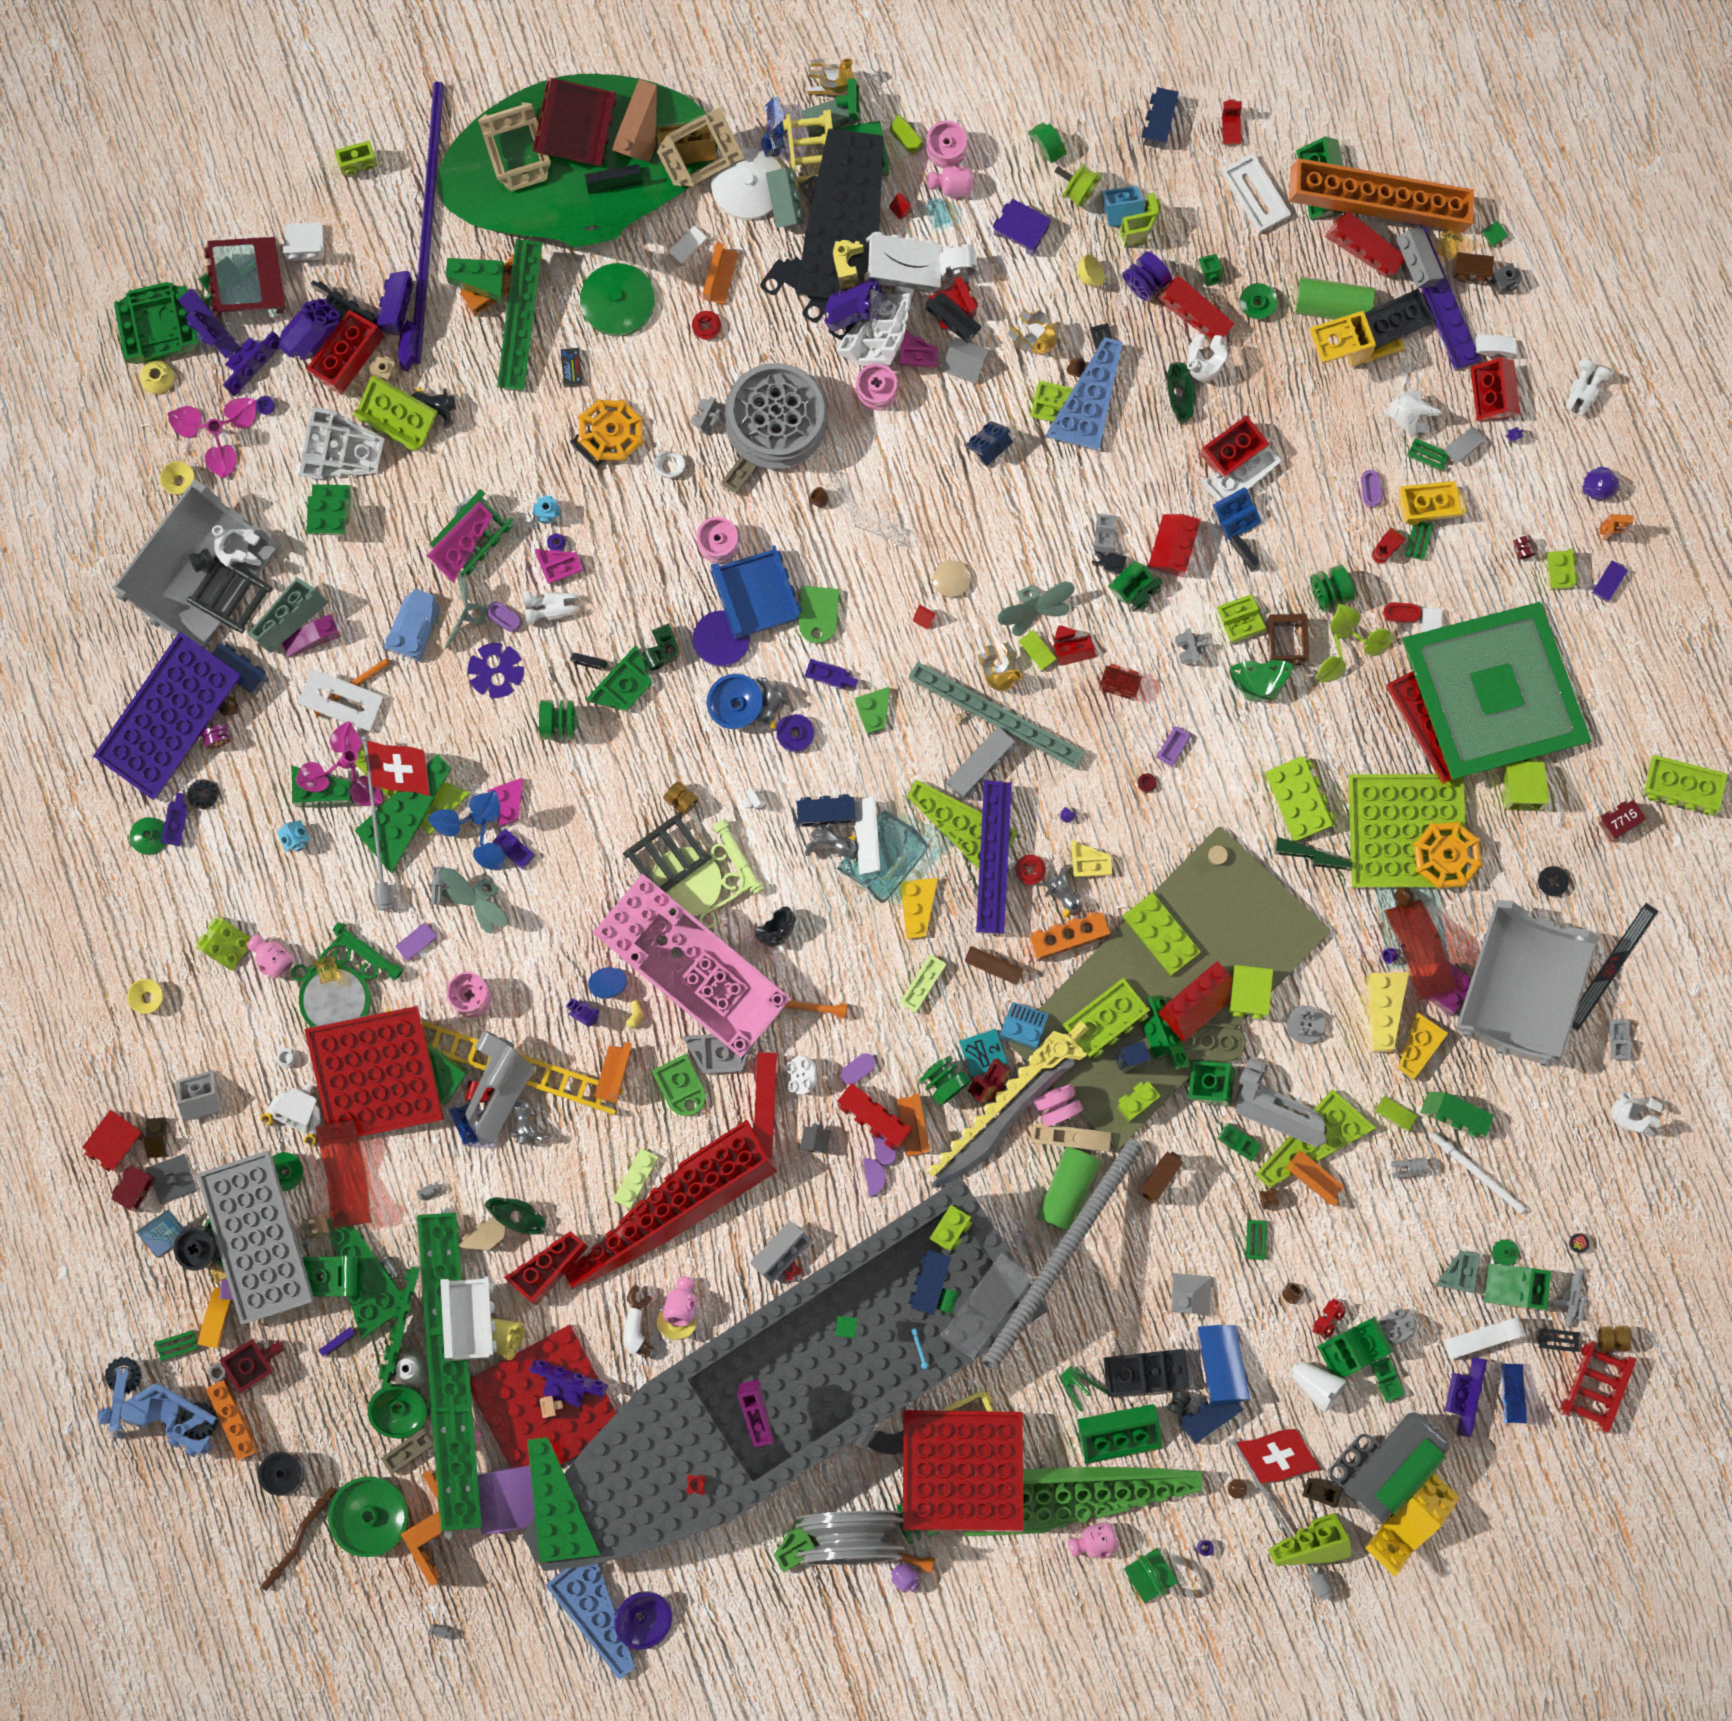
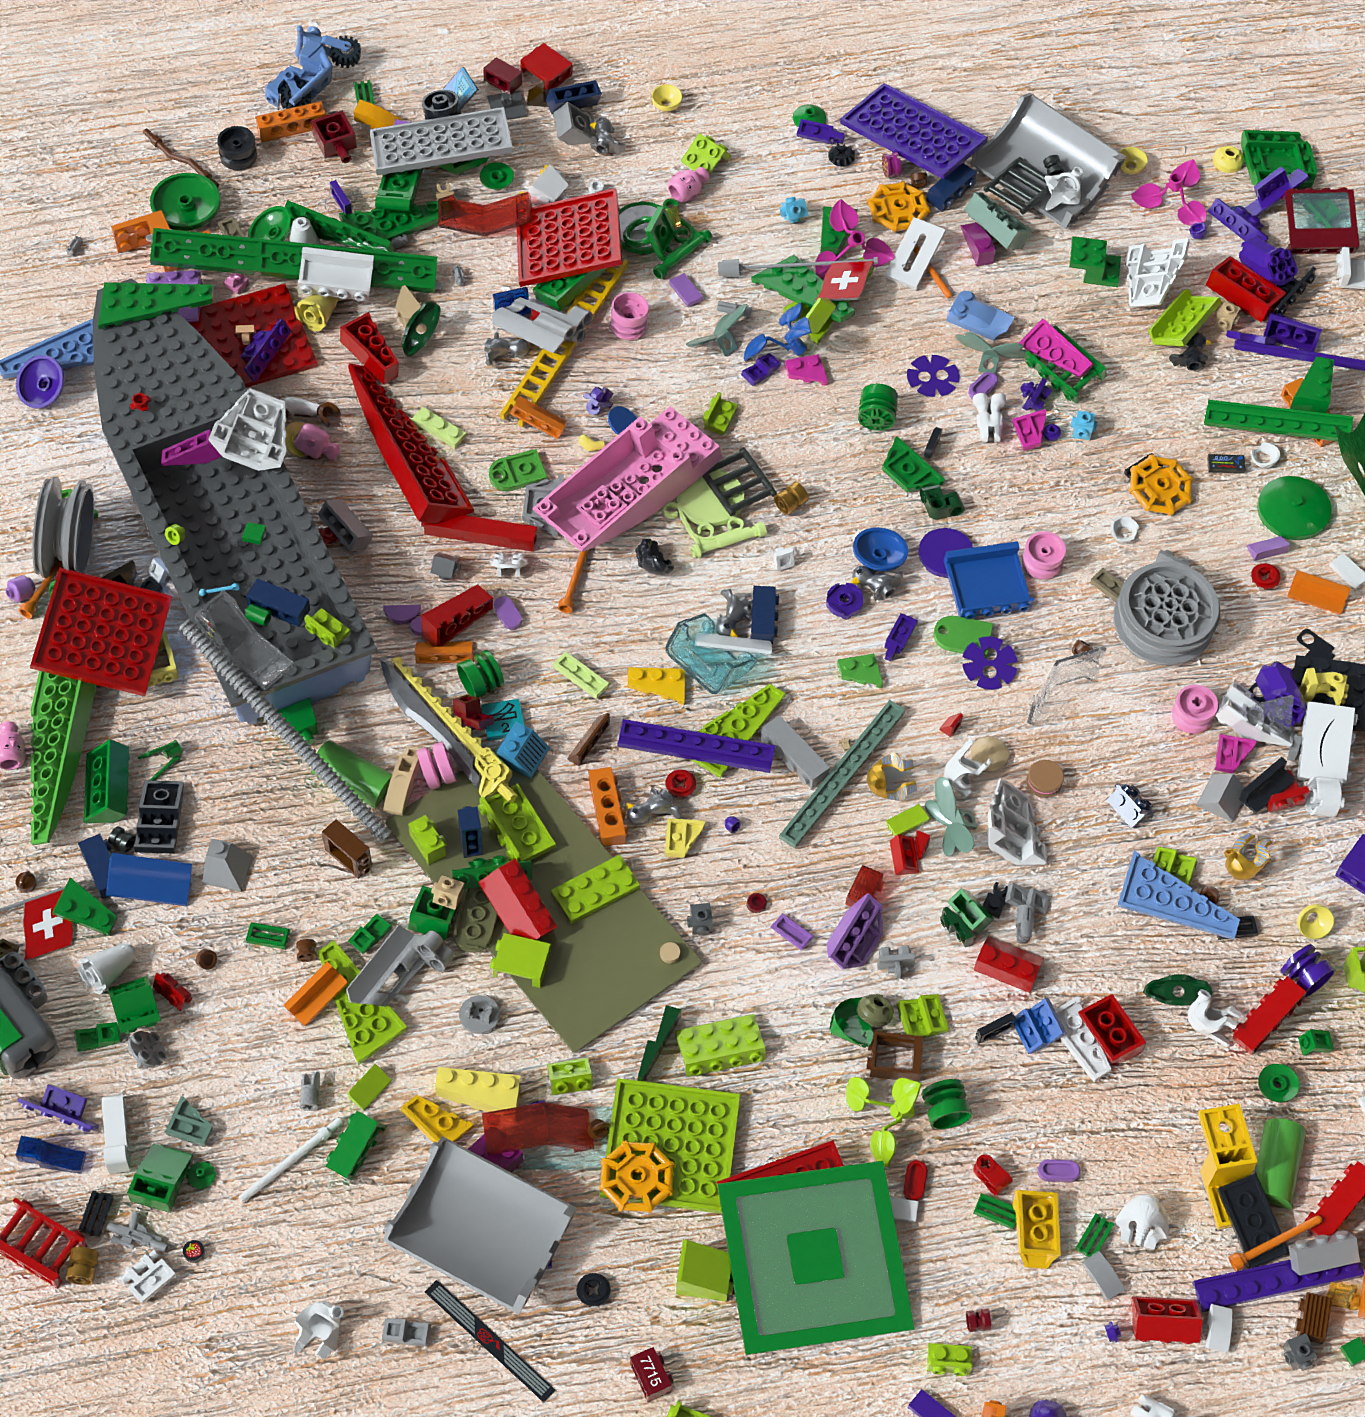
camera: 95 degrees right, 20 degrees down
(161, 1100) = (579, 95): none -> dark blue brick
(217, 1058) = (604, 141): none -> flat silver animal
(279, 730) = (896, 194): none -> light orange plate
(352, 976) = (658, 232): none -> green tile
(447, 791) = (820, 313): none -> lime slope
(511, 563) = (1033, 392): none -> dark purple hips
(553, 320) = (1269, 449): none -> white piece
(580, 884) = (719, 414): none -> lime bracket
(670, 323) = (1268, 548): none -> medium lavender slope
(727, 1348) = (252, 431): none -> white wedge
(842, 599) = (975, 668): none -> dark purple piece
(861, 1407) = (175, 534): none -> lime tile
(873, 1470) = (124, 574): none -> dark brown slope
(973, 524) = (1045, 778): none -> medium nougat head
(986, 606) = (959, 768): none -> white piece
(1025, 1251) = (302, 718): none -> green torso
(1034, 549) = (1012, 827): none -> white wedge
(1132, 533) = (1024, 922): none -> light grey hinge
(1173, 687) = (856, 934): none -> medium lavender wedge
(1176, 831) = (700, 919): none -> dark grey brick
(1199, 1069) = (447, 892): none -> tan brick
(1249, 666) = (875, 1014): none -> olive piece
(1258, 1426) = (84, 909): none -> green wing
(1354, 931) = (570, 1076): none -> lime bracket
(1433, 329) = (1239, 1260): none -> orange piece
(1613, 1273) = (151, 1281): none -> white plate

